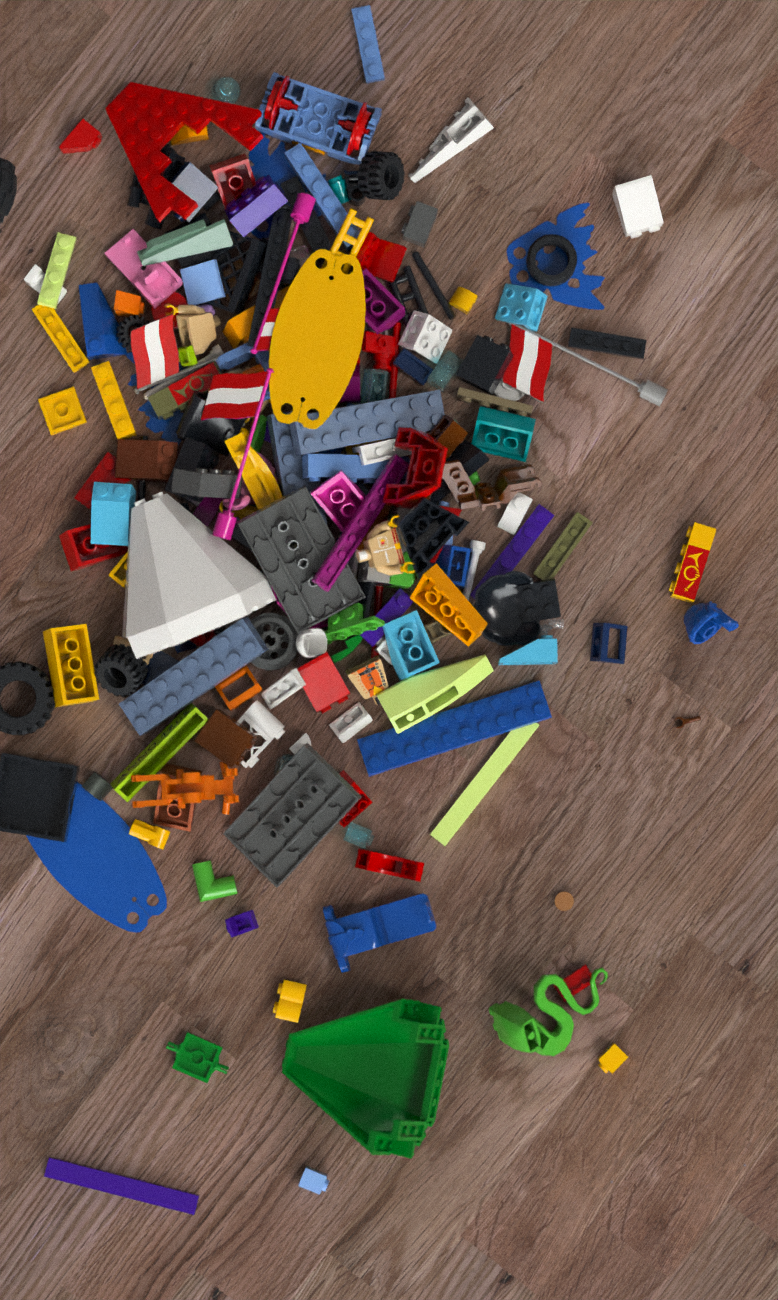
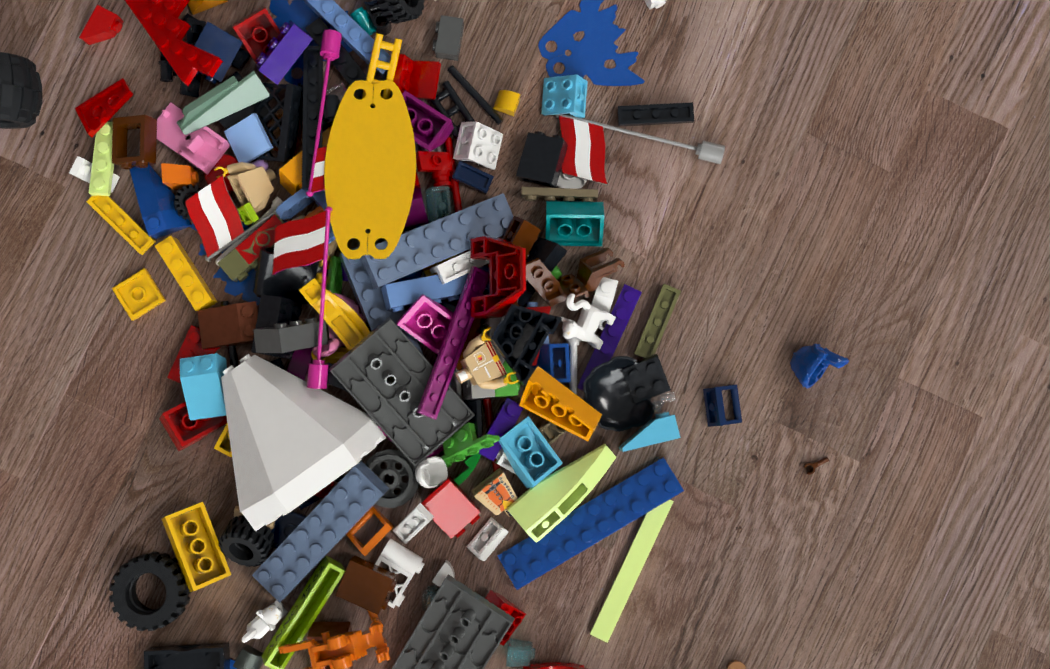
camera: 20 degrees left, 0 degrees up
(67, 218) = (102, 107): none -> red wing
(105, 264) = (148, 141): none -> reddish brown window
(126, 747) = (264, 621): none -> white animal
(445, 371) = (504, 175): clear light blue slope -> none
(494, 533) = (587, 324): none -> white animal
(551, 240) = (588, 26): black tyre -> none
(693, 562) = (787, 308): brick -> none

